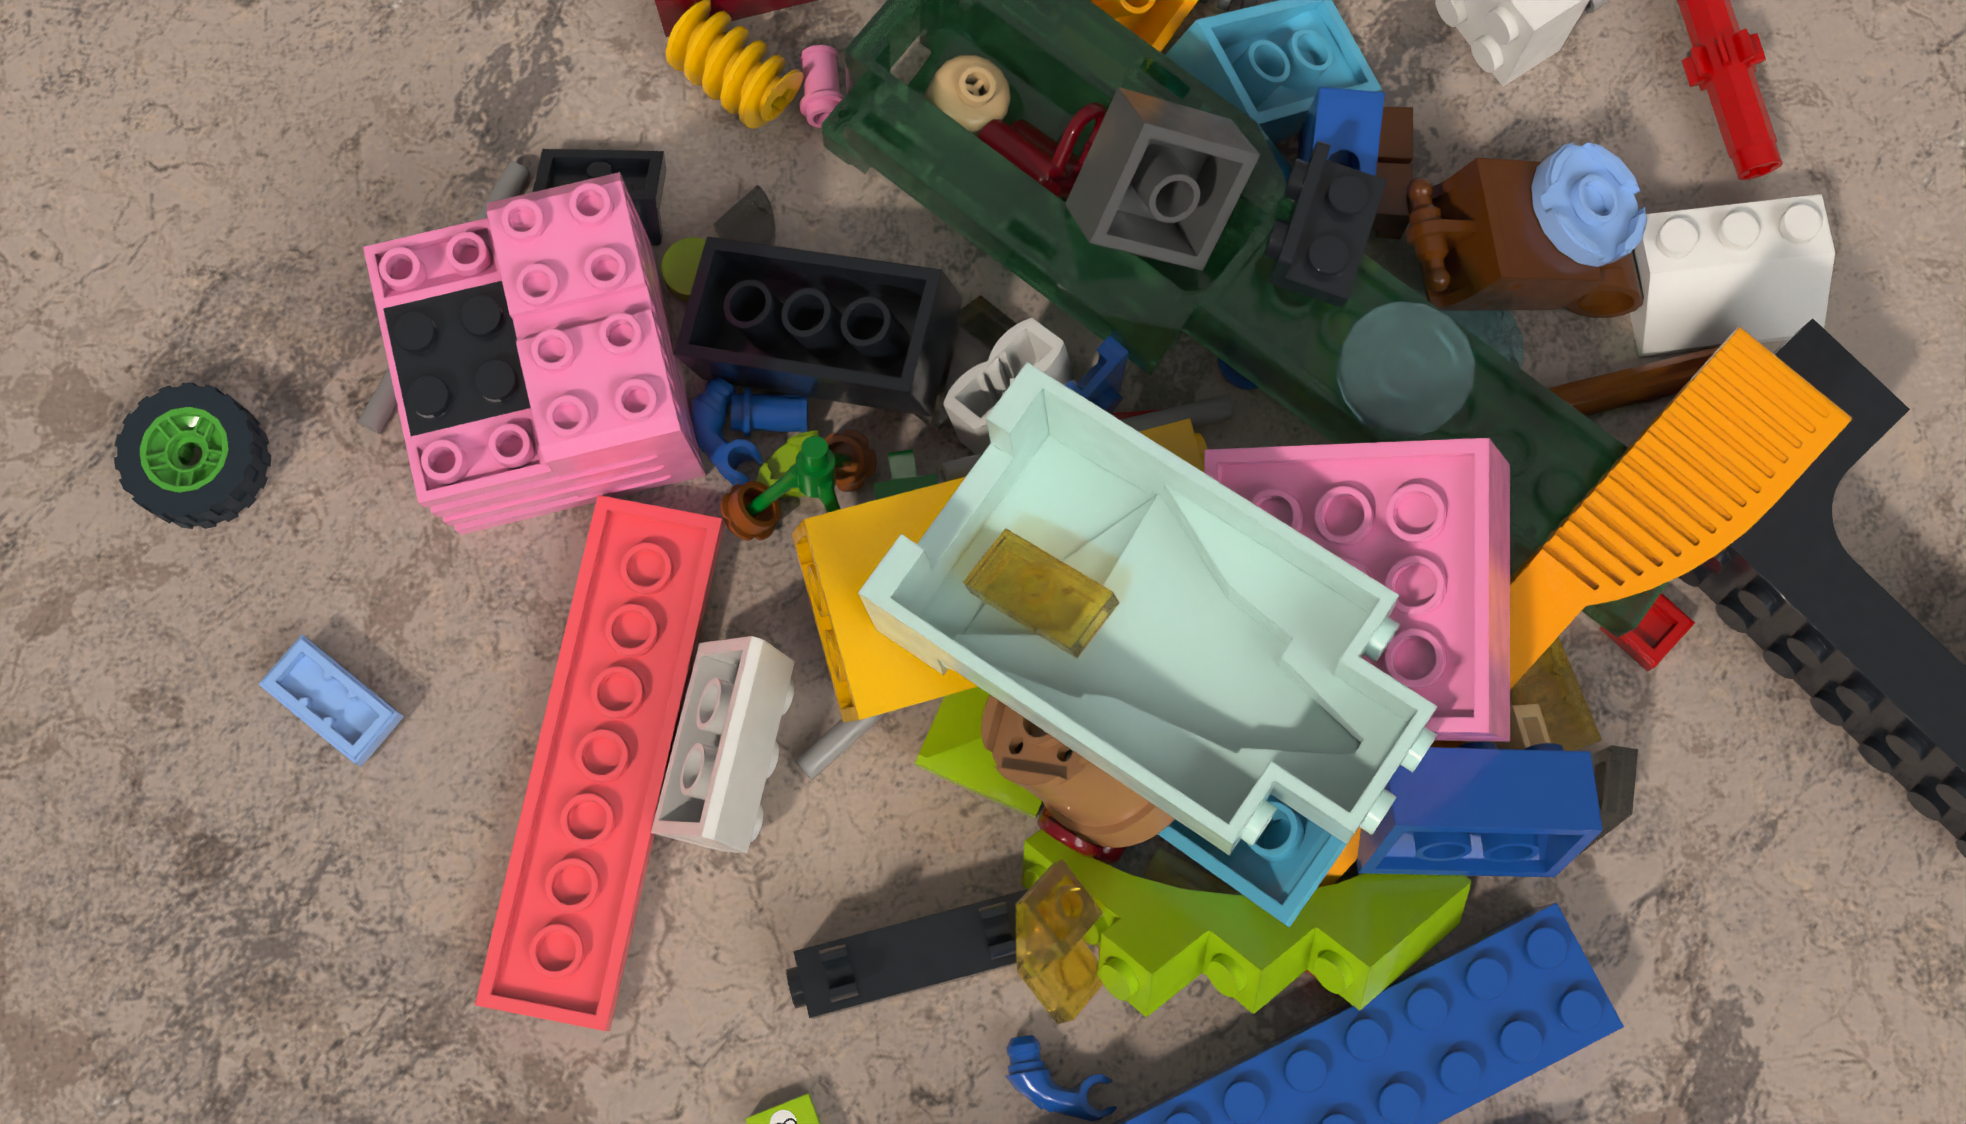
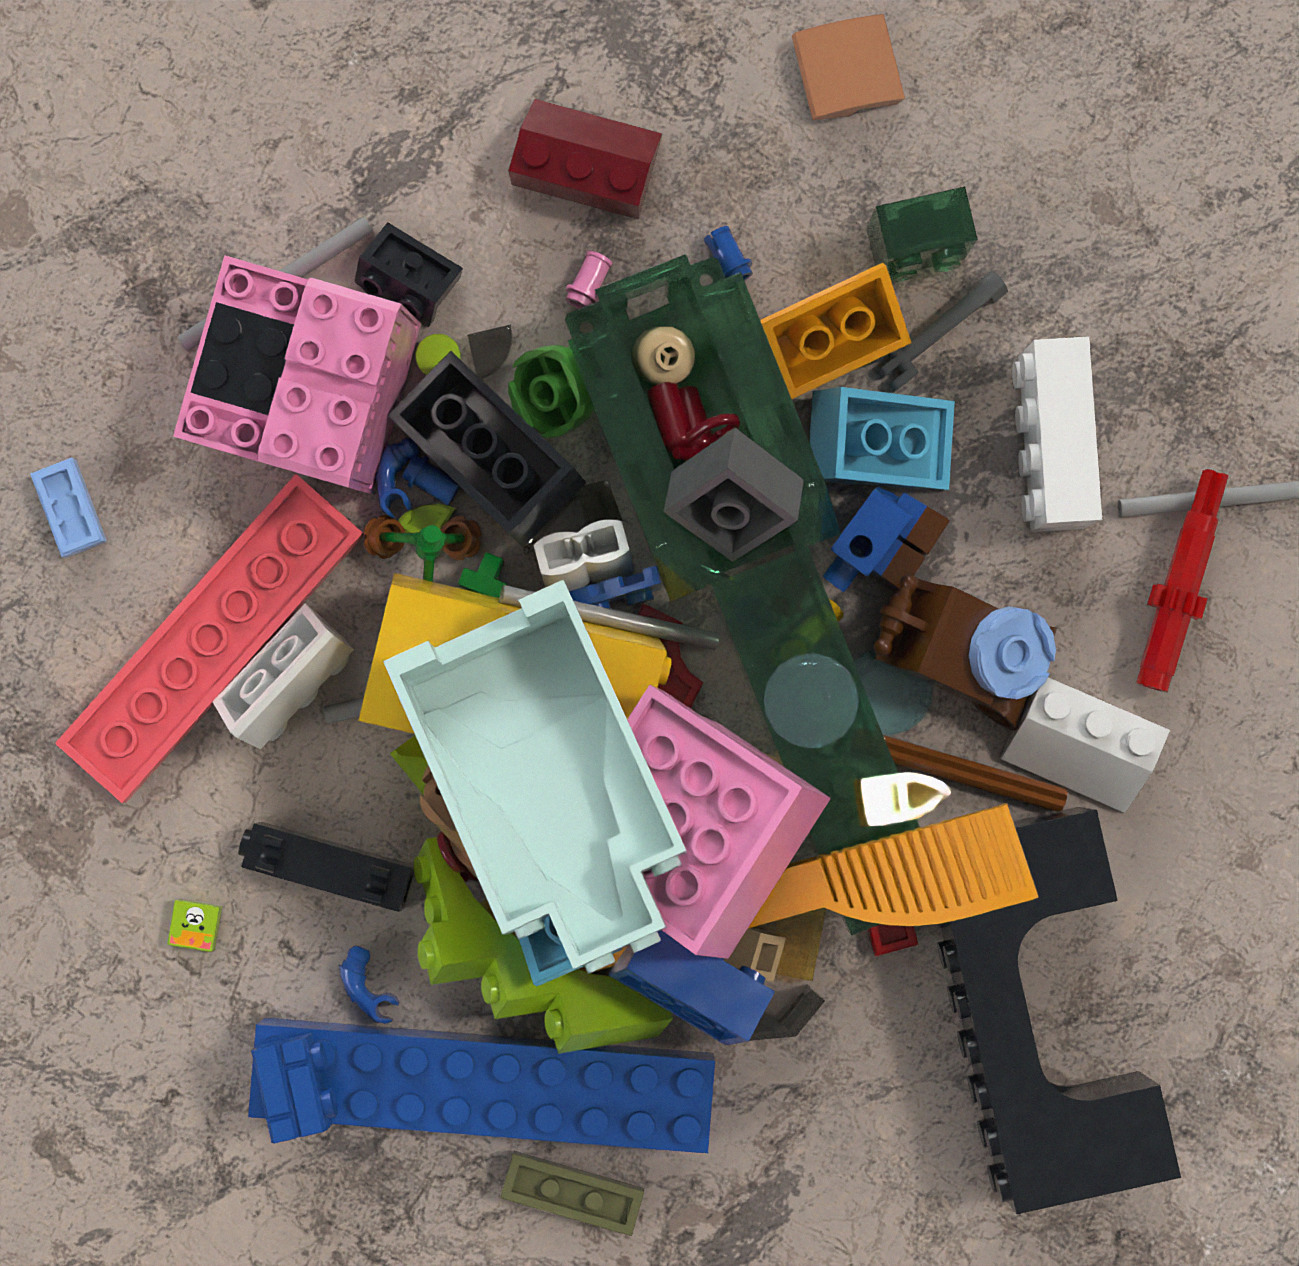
camera: 30 degrees right, 10 degrees up
(161, 441) = (51, 281): black wheel -> none
(728, 70) = (535, 238): yellow piece -> none
(855, 213) = (549, 391): none -> bright green cylinder
(1041, 593) = (500, 714): clear yellow plate -> none
(1050, 942) = (403, 912): clear yellow slope -> none
(1326, 229) = (817, 584): black bracket -> none
(1583, 424) = (897, 797): none -> plate

